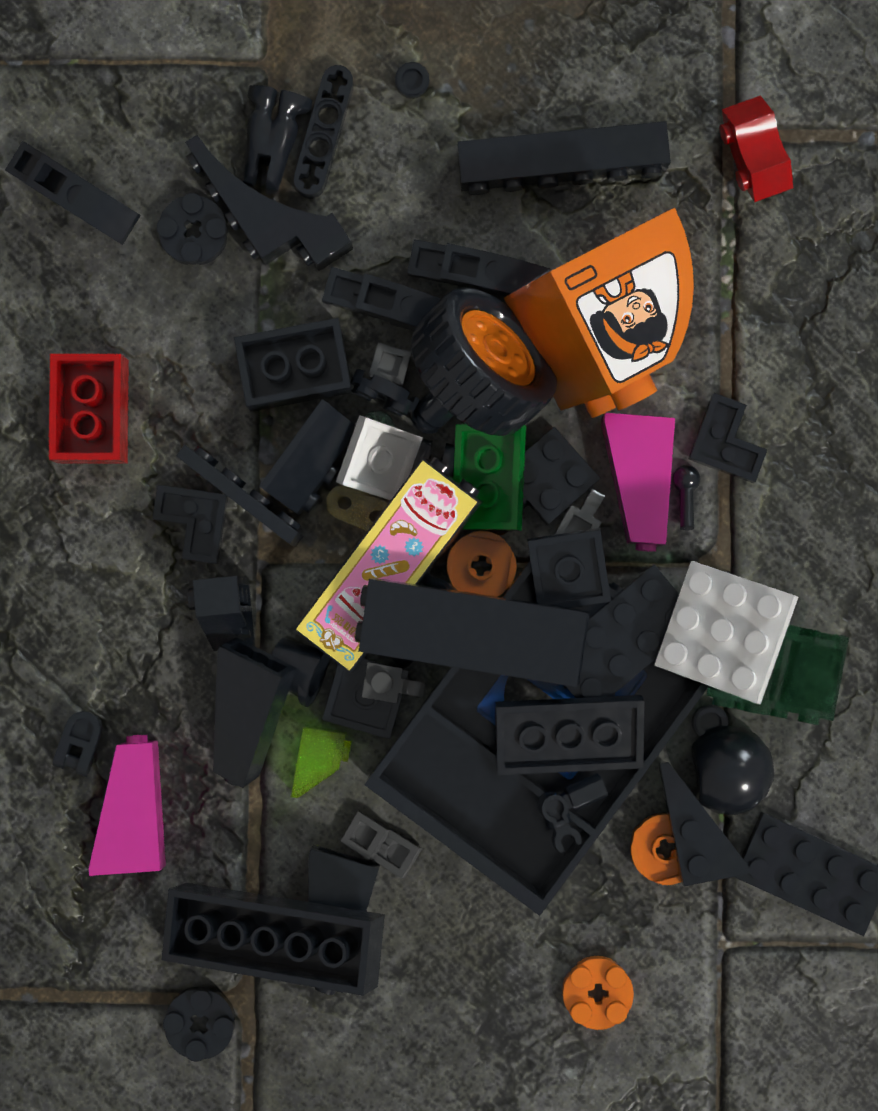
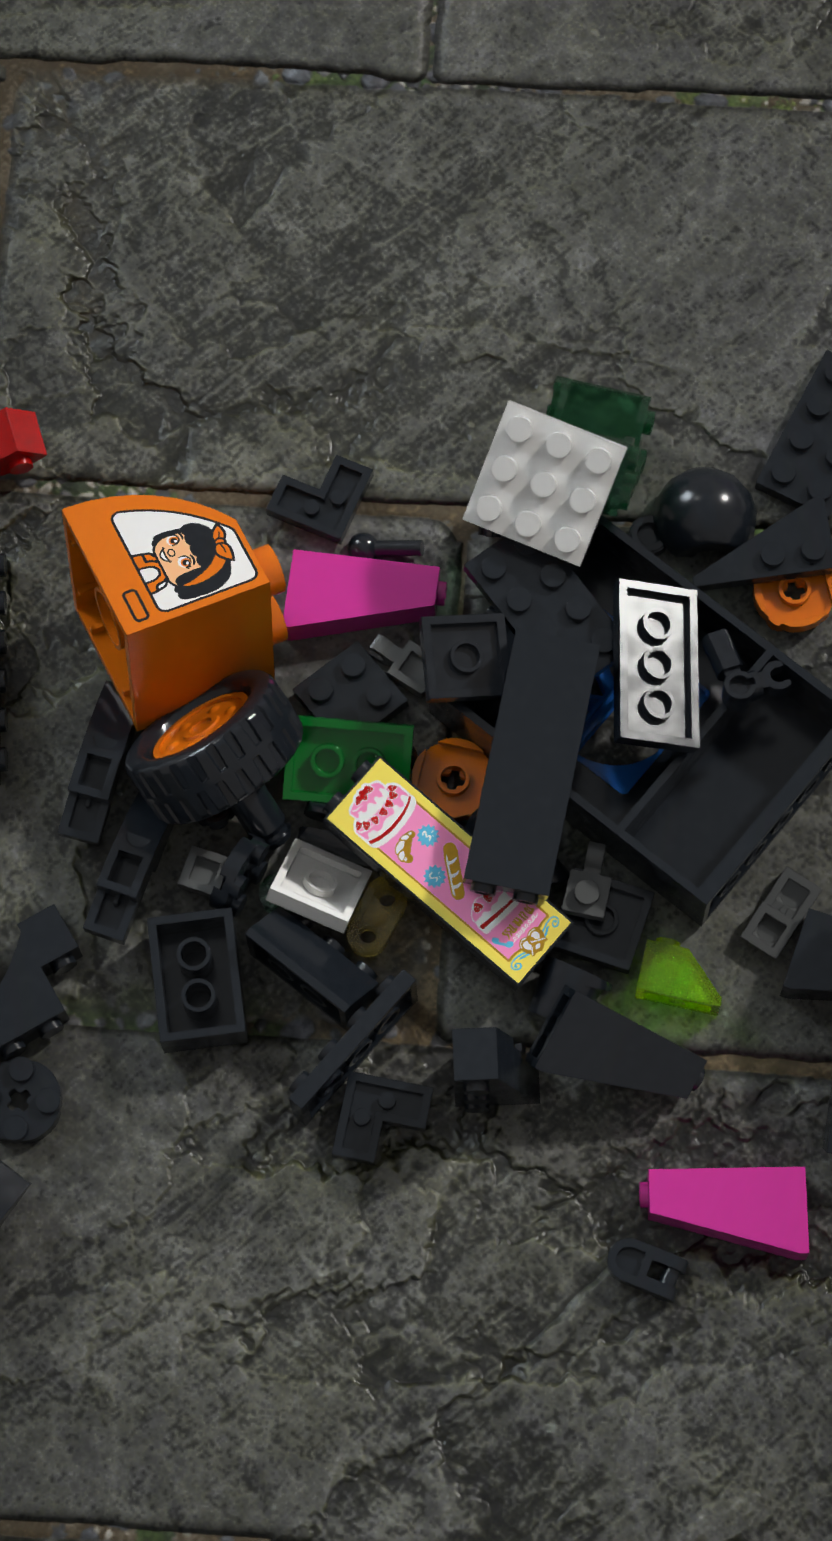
camera: 85 degrees left, 15 degrees down
(88, 409) = (233, 1230): red brick -> none

